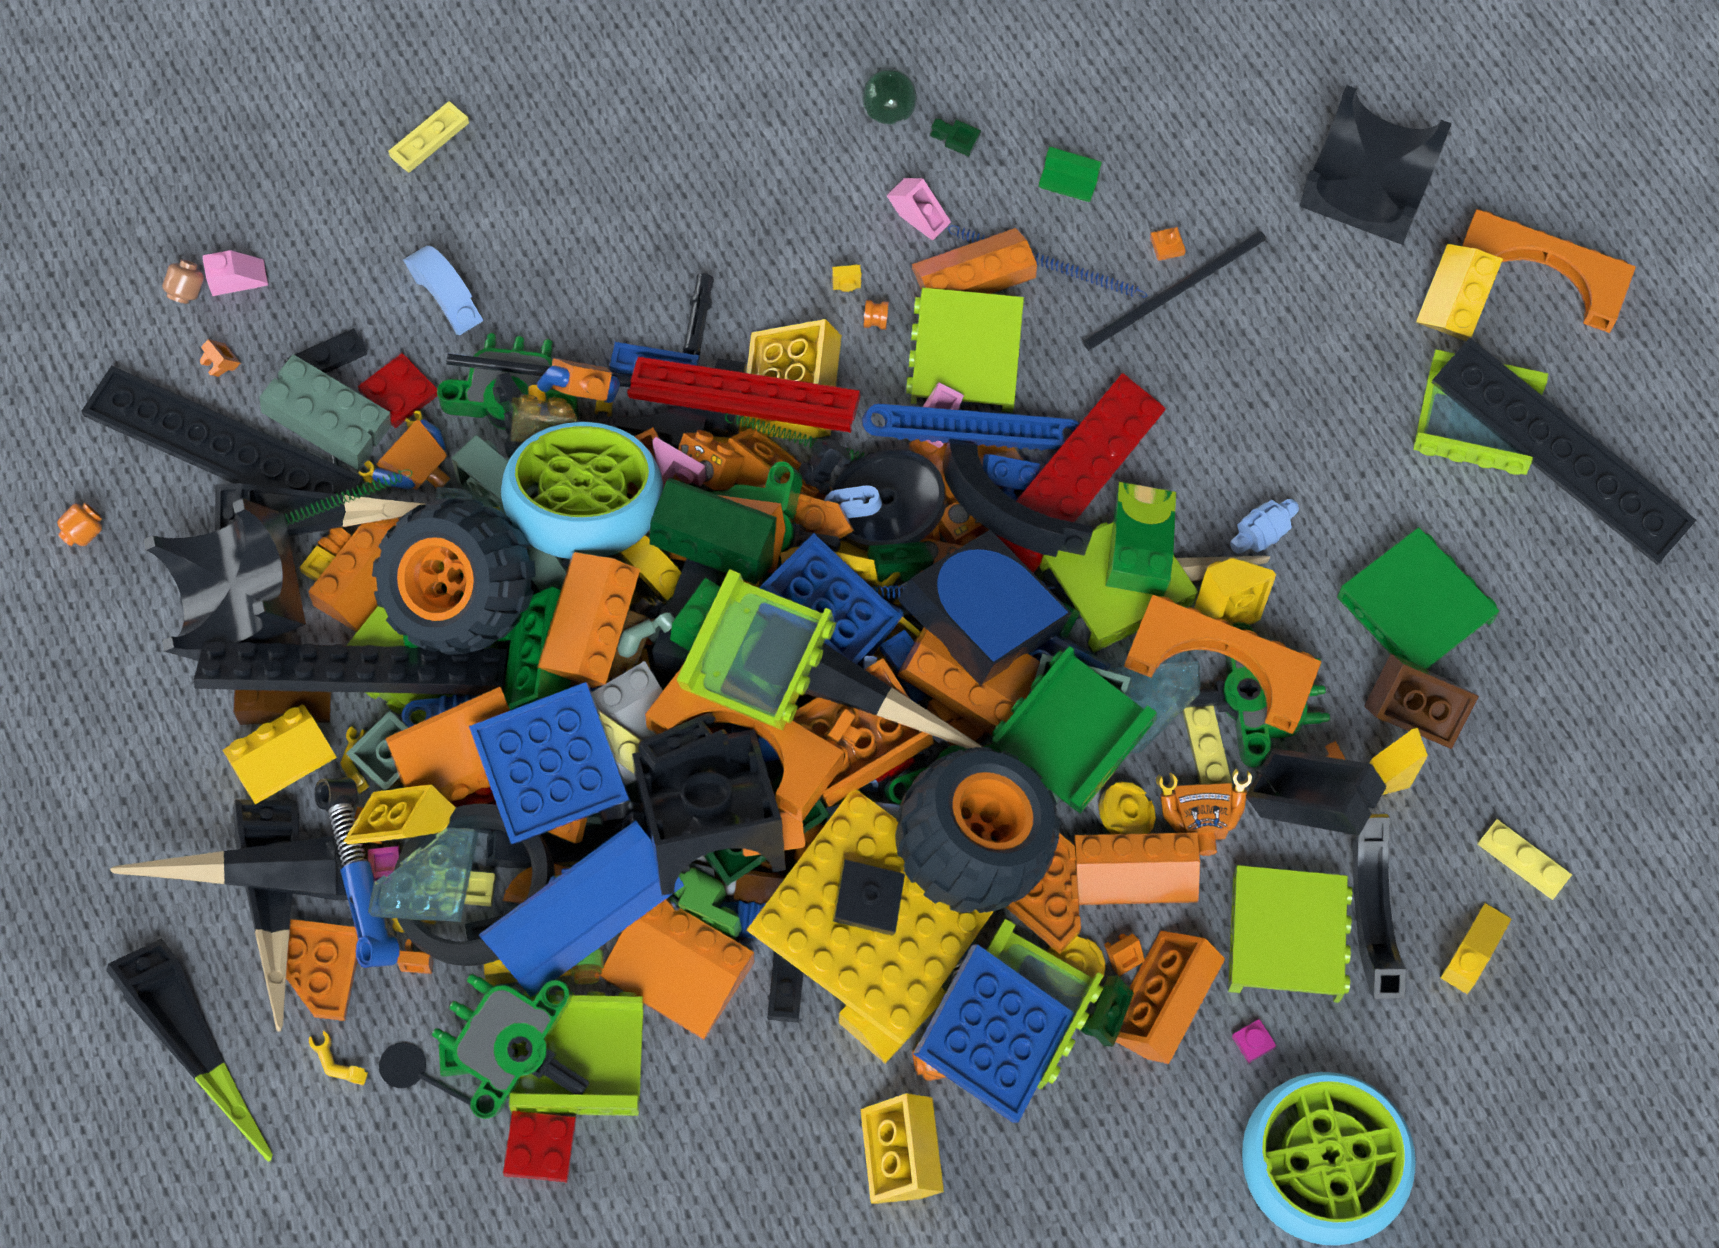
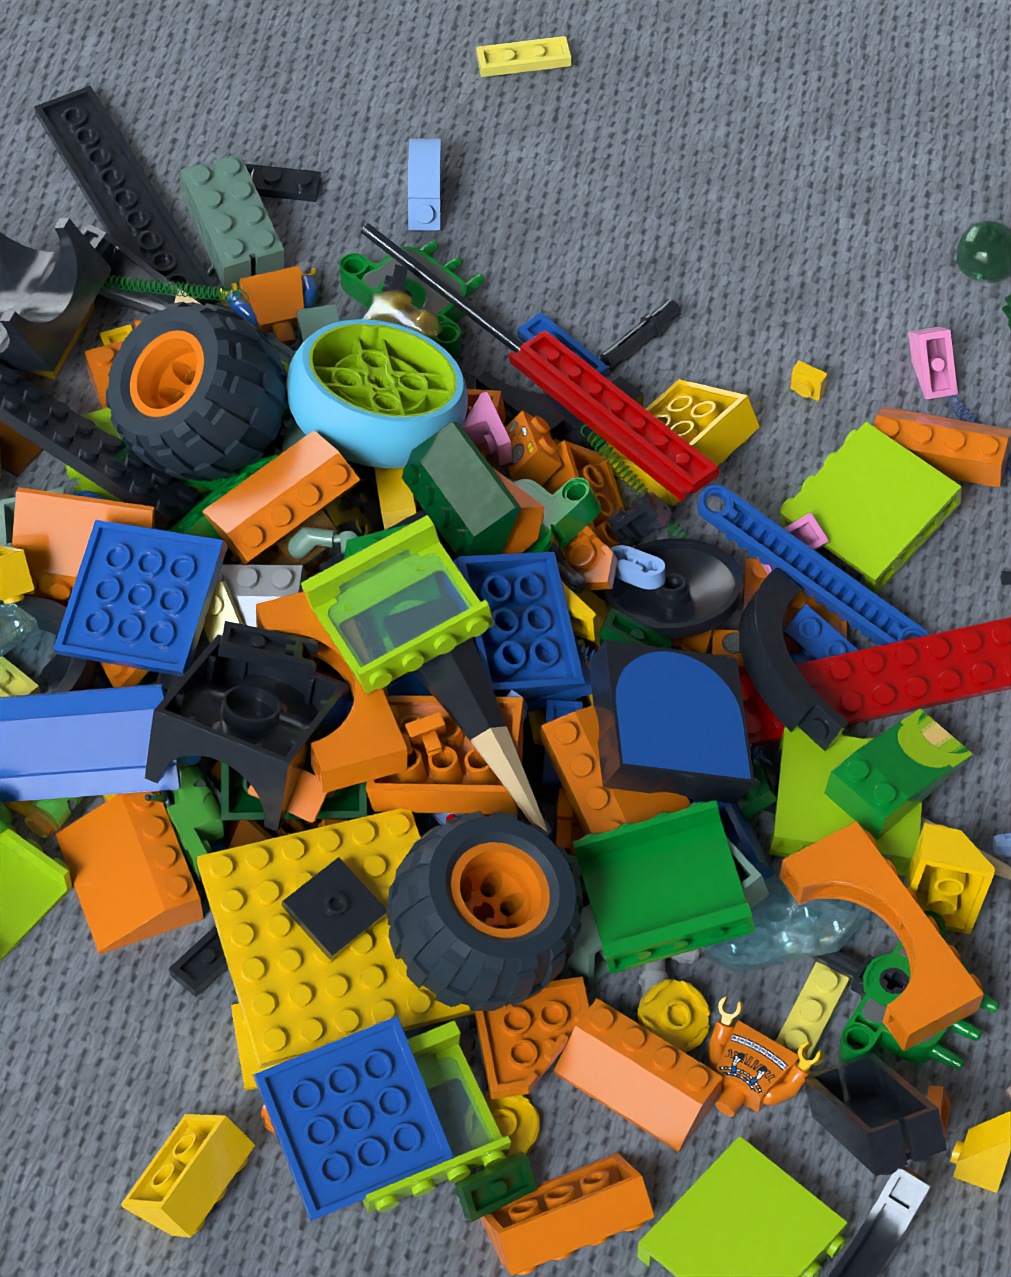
camera: 40 degrees right, 10 degrees down
(183, 281) = (207, 53): nougat head -> none
(221, 357) = (185, 130): orange tile -> none
(233, 272) = (256, 70): bright pink slope -> none
(399, 389) = (315, 243): red plate -> none
(580, 381) = (472, 317): torso -> none
(876, 314) = (809, 429): orange wheel -> none
(1125, 953) = (558, 1147): orange tile -> none

